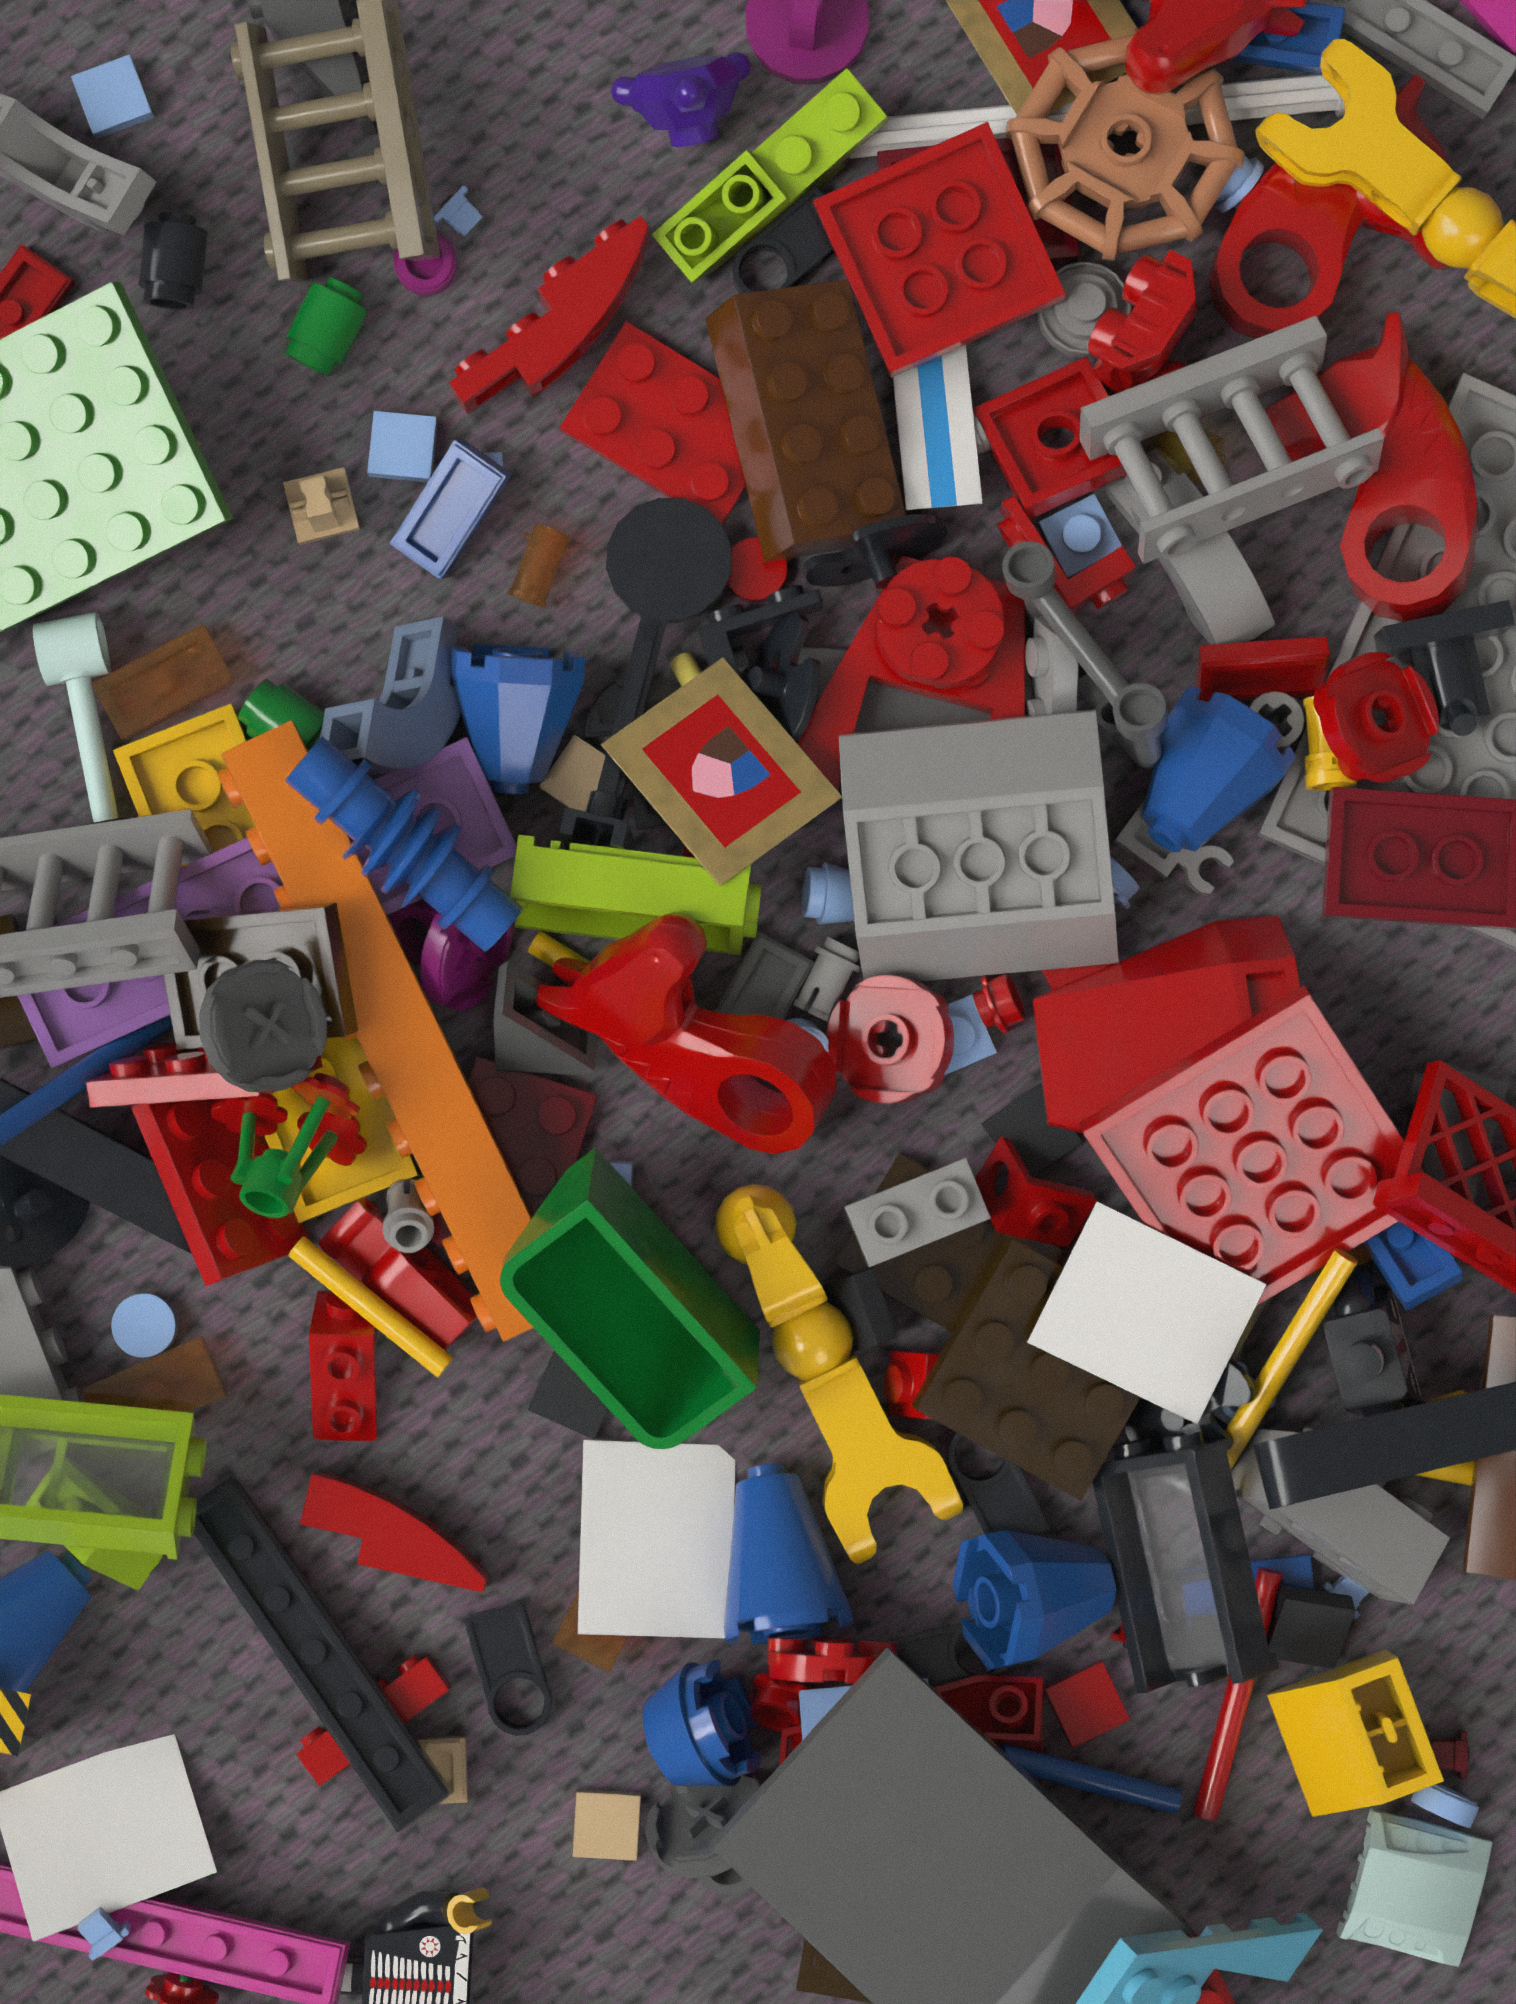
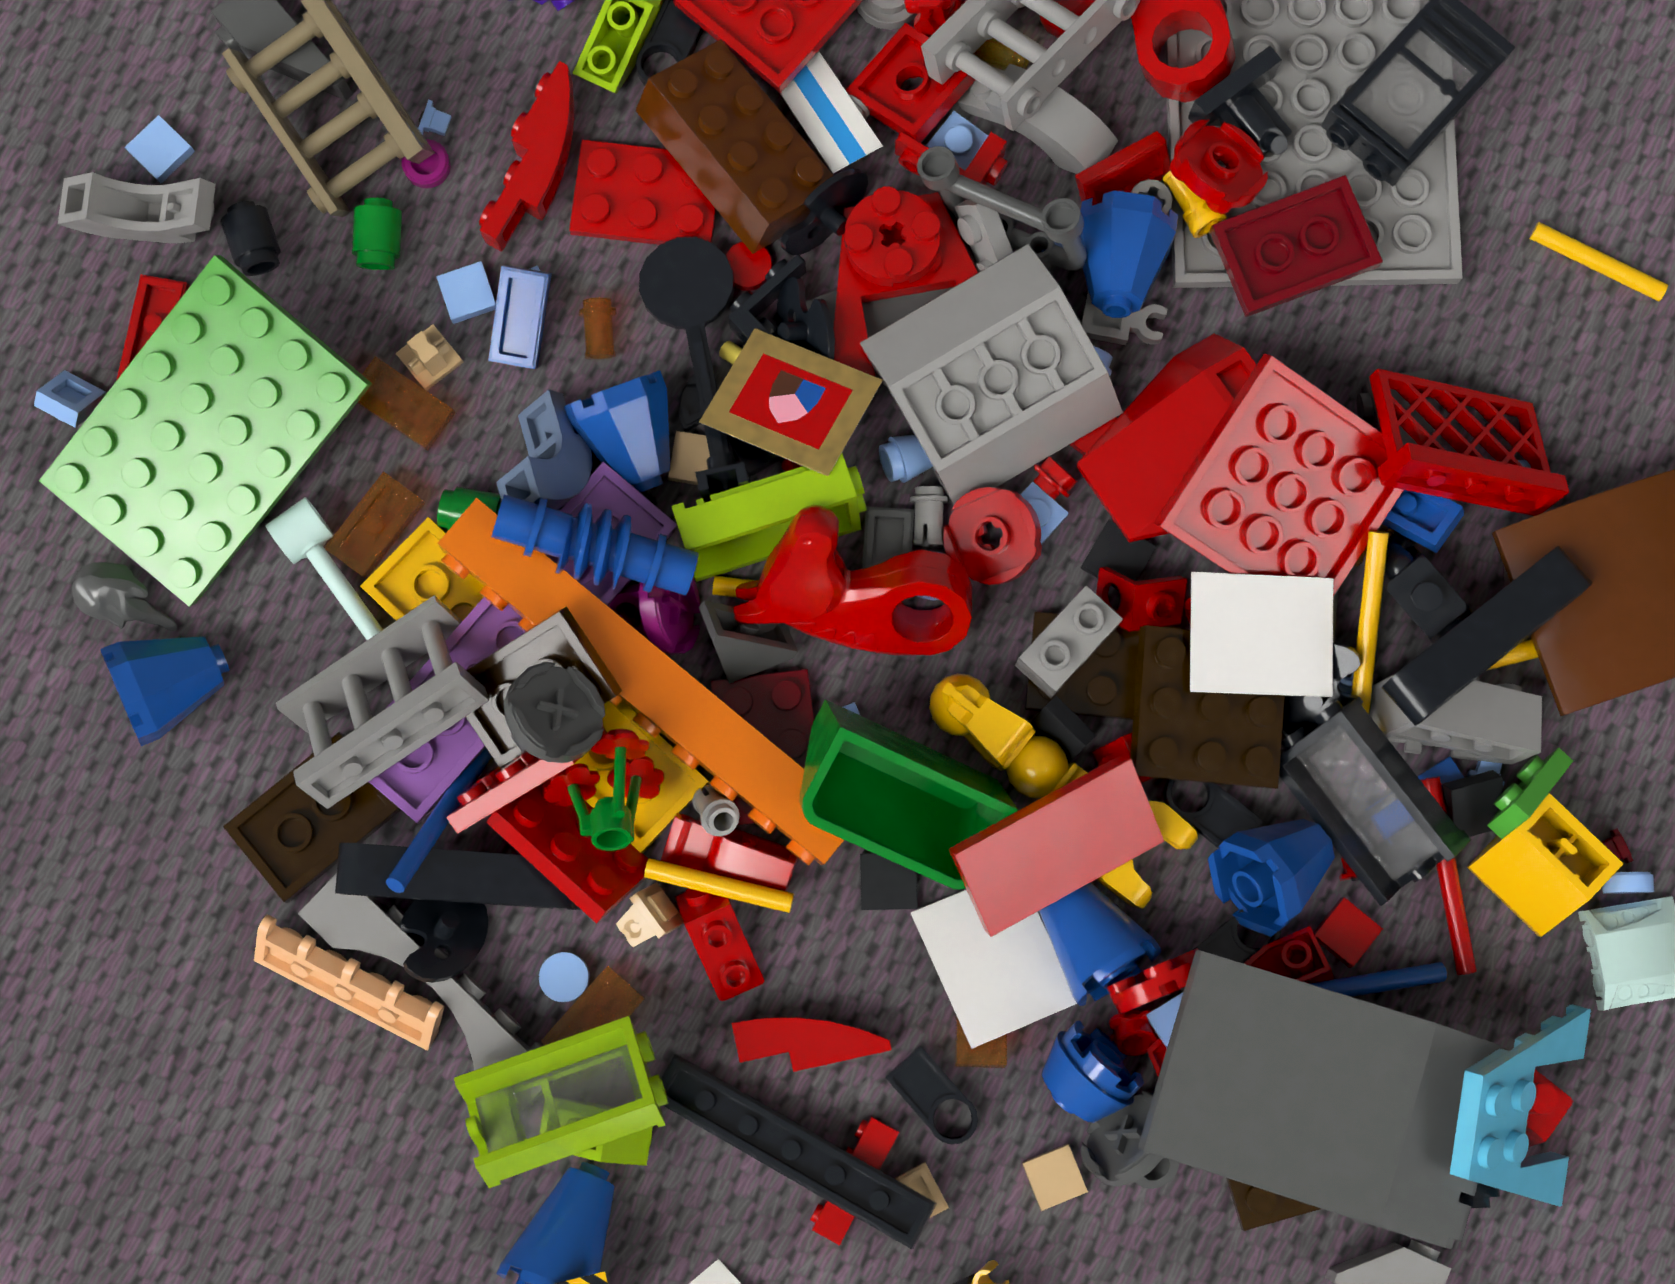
camera: 25 degrees left, 5 degrees down
(265, 551) = (404, 404): none -> clear orange plate
(276, 1301) = (649, 916): none -> tan brick
(785, 1448) = (1057, 844): none -> tile
(1359, 1651) = (1521, 800): none -> bright green plate

